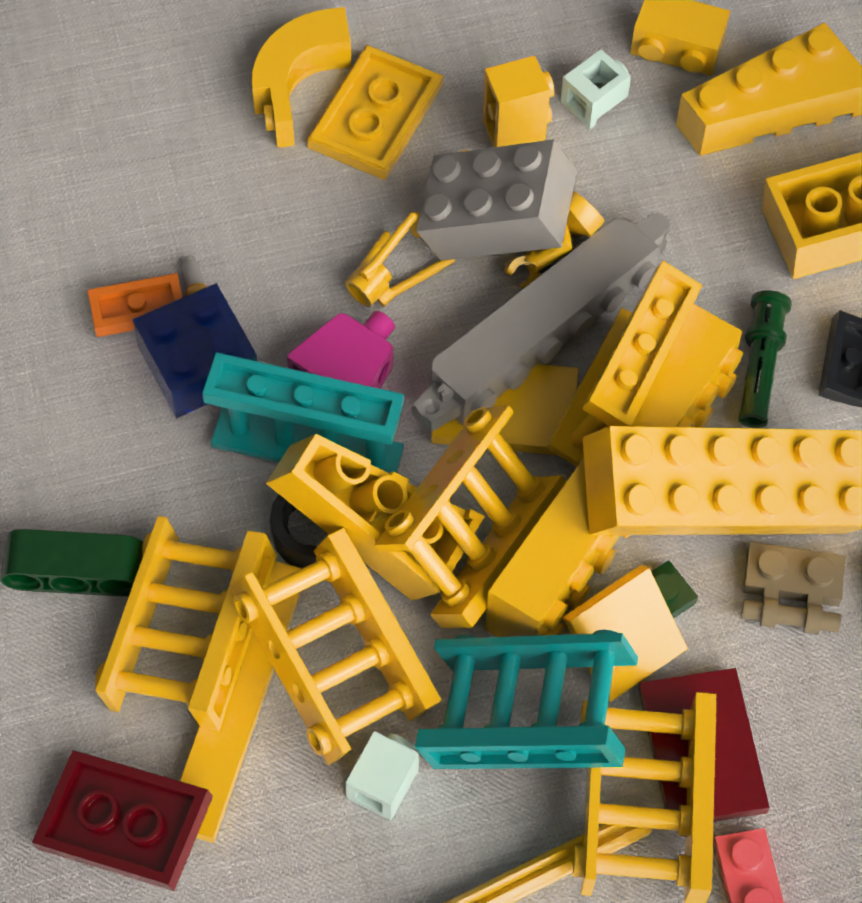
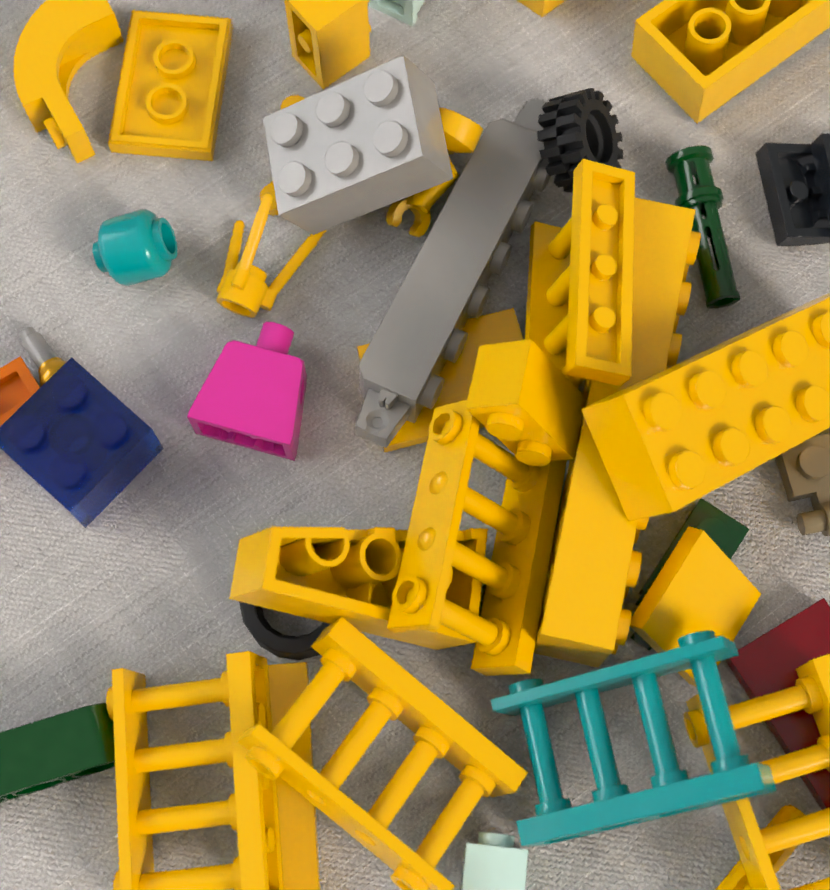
camera: 20 degrees left, 10 degrees up
(278, 406) = (236, 489): teal fence -> none
(297, 222) = (135, 247): none -> teal head
(545, 423) = (526, 402): none -> yellow brick
(687, 246) = (578, 129): none -> black tyre

